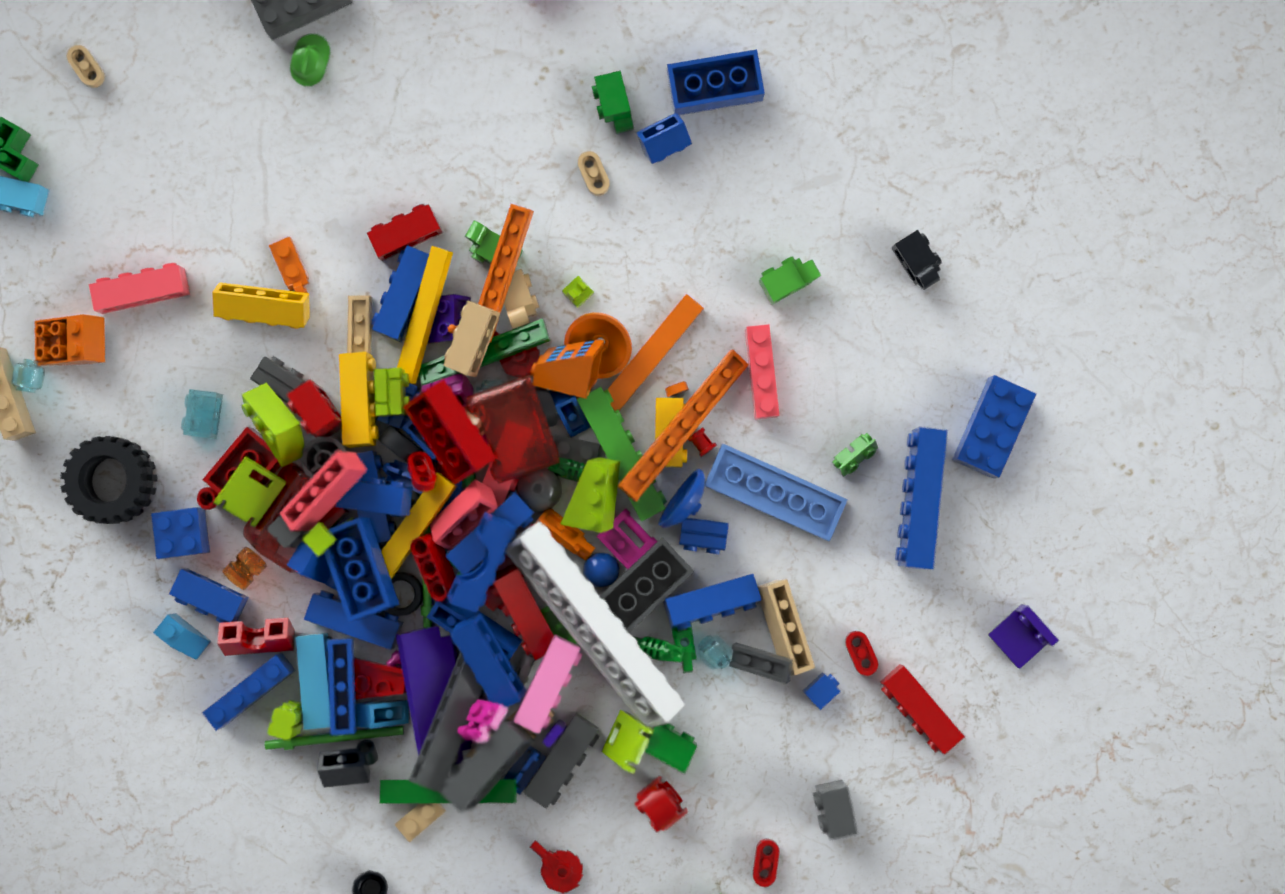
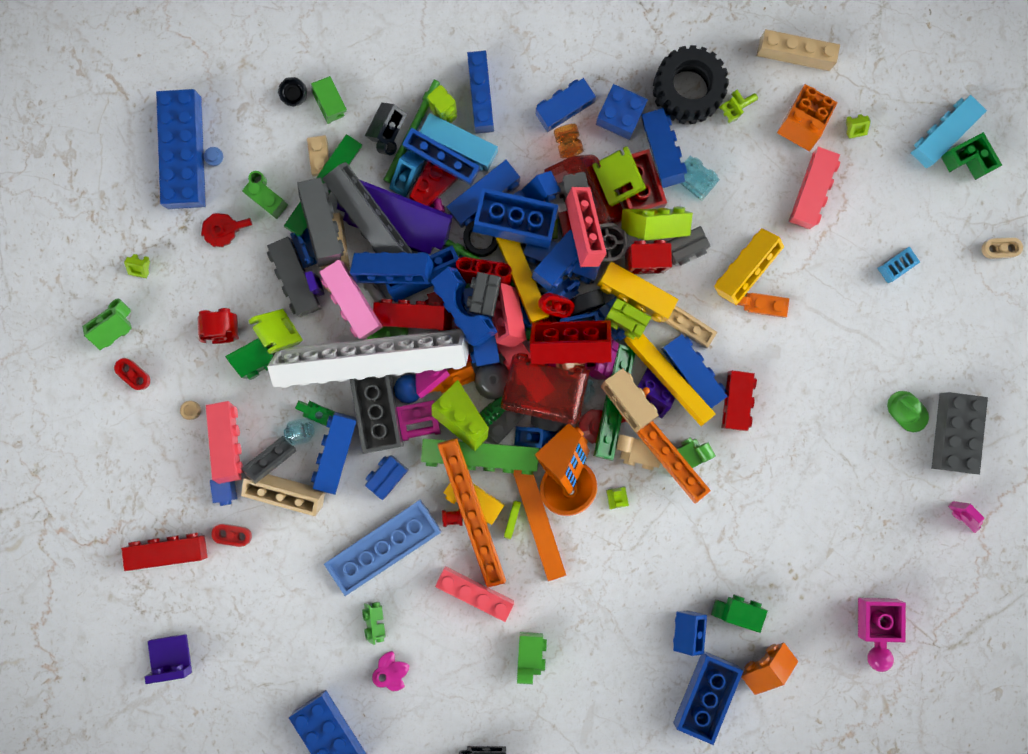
camera: 120 degrees right, 0 degrees up
(28, 376) = (800, 73): clear light blue head -> none
(48, 284) = (857, 126): none -> lime tile
(106, 421) = (734, 106): none -> lime arm
(182, 163) = (888, 274): none -> dark azure slope
(182, 636) = (549, 69): dark azure slope -> none
(191, 466) = (663, 147): none -> blue brick
(206, 498) = (634, 144): red cone -> none
(238, 639) = (520, 107): red arch -> none
(319, 539) = (553, 203): lime tile -> none
(355, 845) = (328, 99): none -> bright green hinge
(455, 549) = (484, 294): none -> dark grey brick
(482, 718) = (353, 240): dark pink plate -> none
(497, 845) = (263, 195): none -> bright green hinge
(579, 552) = (429, 380): none -> dark pink wing
(593, 174) = (695, 564): tan plate -> none
(650, 39) = (770, 670): none -> orange brick
(660, 649) = (325, 394): green hinge -> none
(665, 381) = (512, 519): none -> lime tile
(676, 389) = (502, 524): orange tile -> none
(685, 500) = (418, 479): blue dish -> none
(764, 778) = (190, 410): none -> tan tile
(773, 720) = (223, 442): none -> coral brick
(836, 809) = (134, 446): dark grey brick -> none
(890, 404) = (393, 671): none -> dark pink plate
(922, 498) = (309, 650): blue brick -> none

